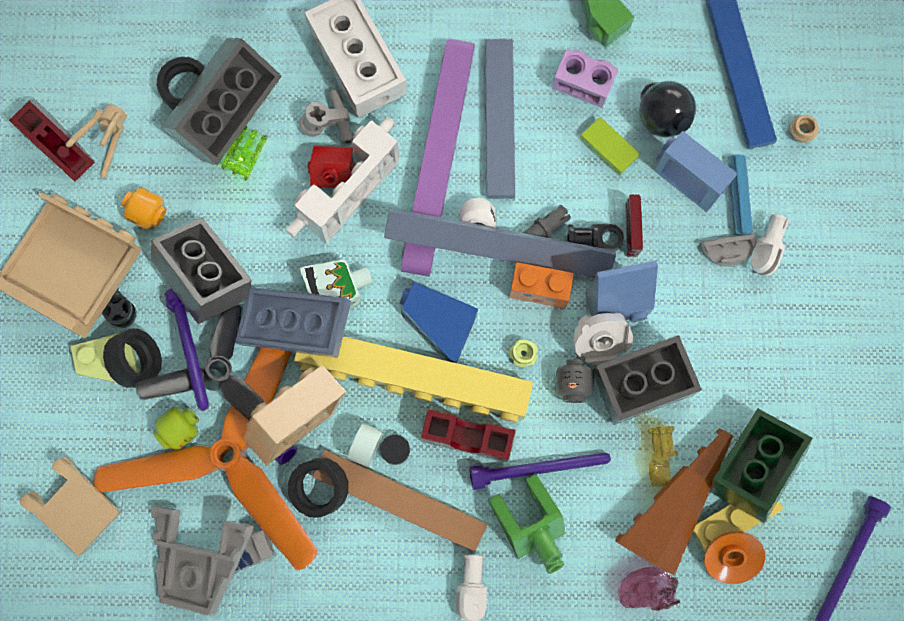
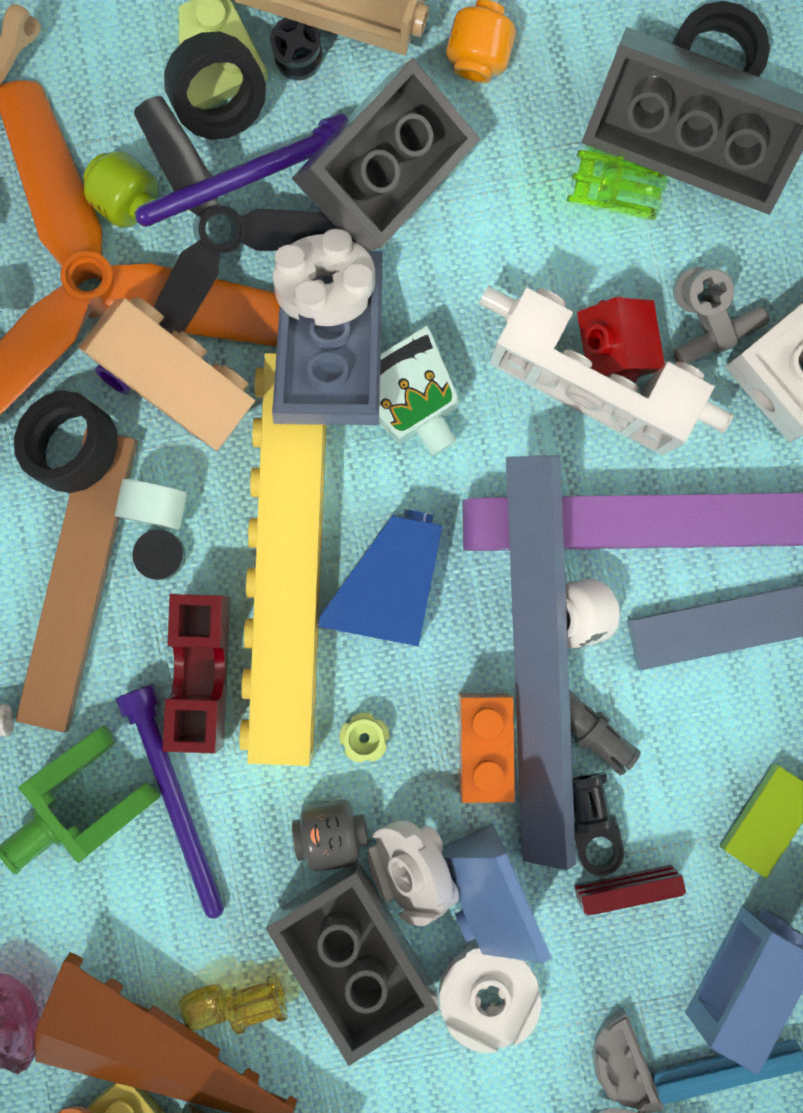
camera: 80 degrees right, 10 degrees up
(246, 312) = (324, 255): none -> white plate
(696, 311) = (499, 1024): none -> white plate

